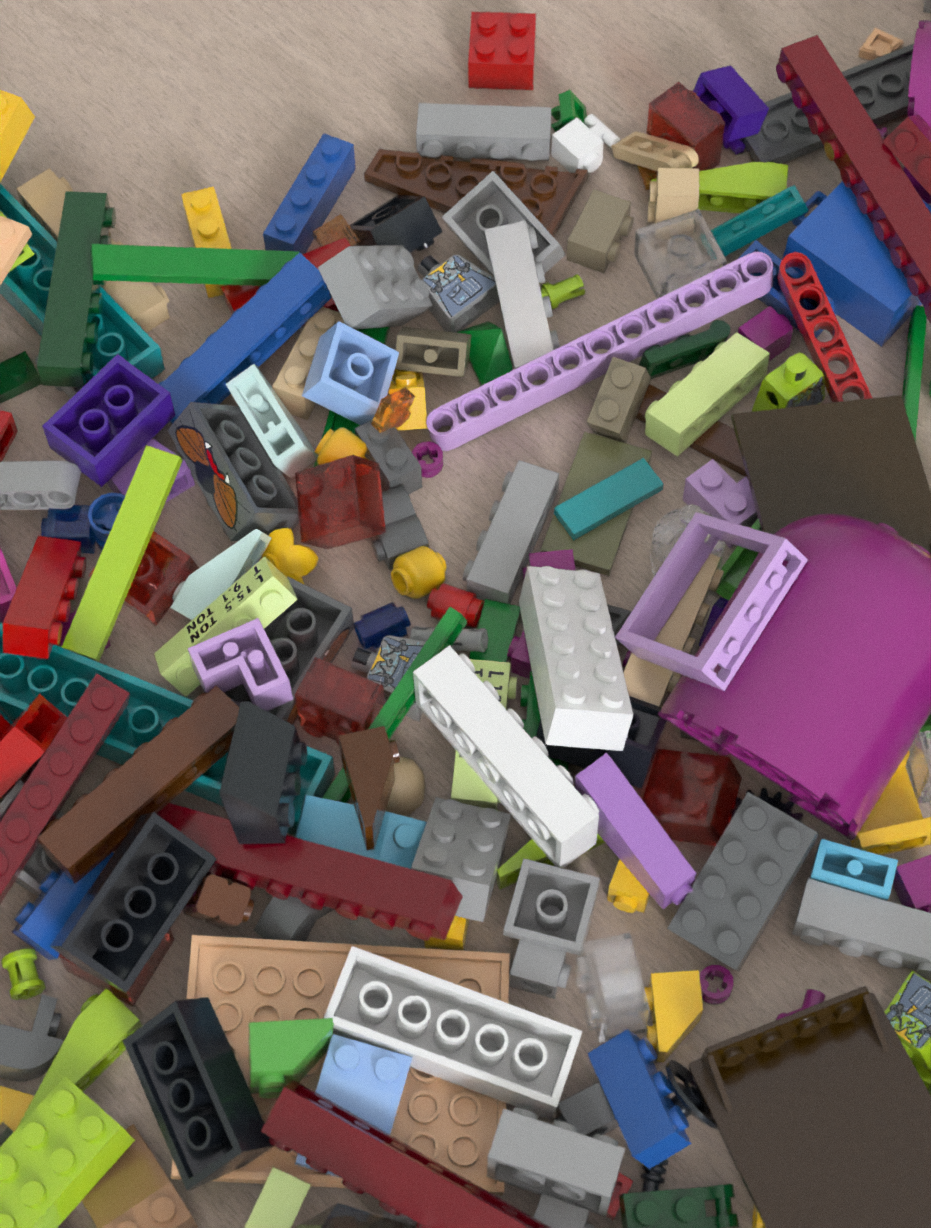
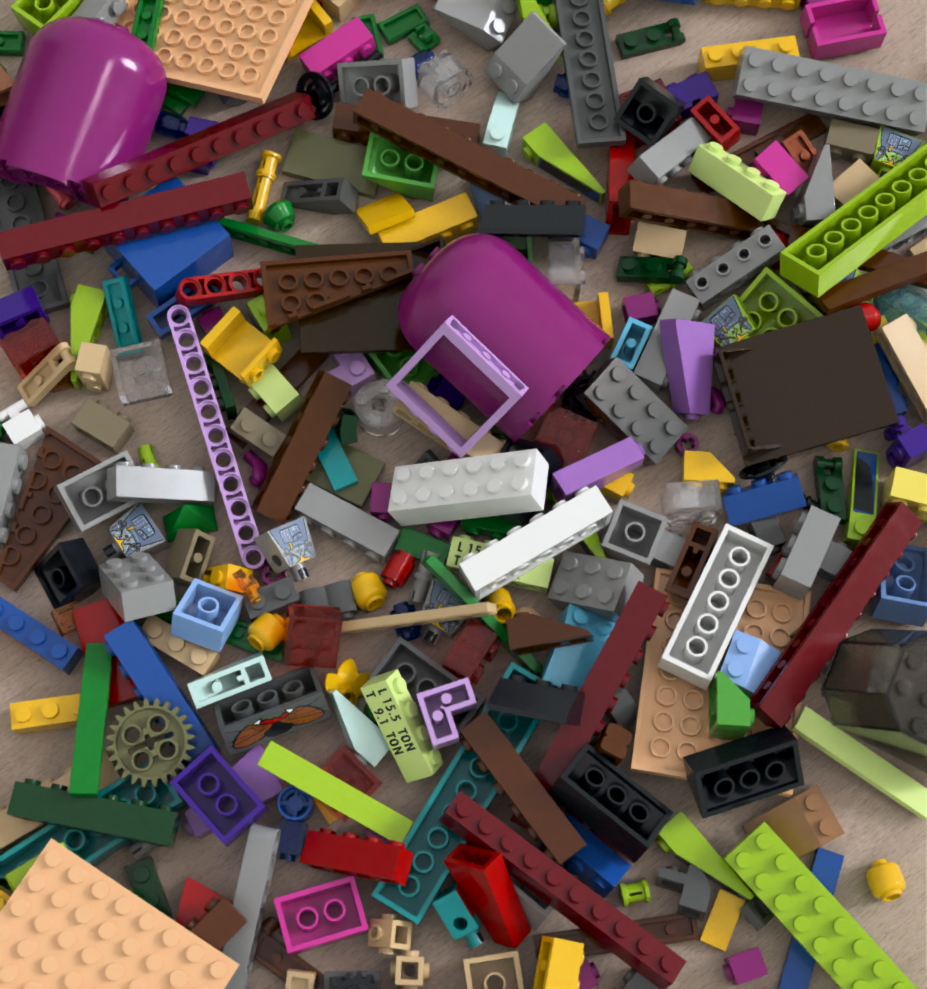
camera: 85 degrees left, 10 degrees up
(200, 317) = (143, 719): none -> olive gear
(377, 625) = (419, 618): none -> tan tile
(419, 741) = (504, 604): none -> yellow brick
(462, 461) = (288, 548): none -> torso
(522, 990) = (692, 560): none -> reddish brown slope
(571, 419) = (259, 468): none -> magenta arm
(607, 451) = (302, 446): none -> reddish brown brick
(649, 507) = (346, 426): none -> dark green piece
(735, 354) = (241, 347): none -> yellow panel
(838, 957) = (689, 364): none -> medium lavender slope
(841, 419) = (314, 284): none -> reddish brown wing

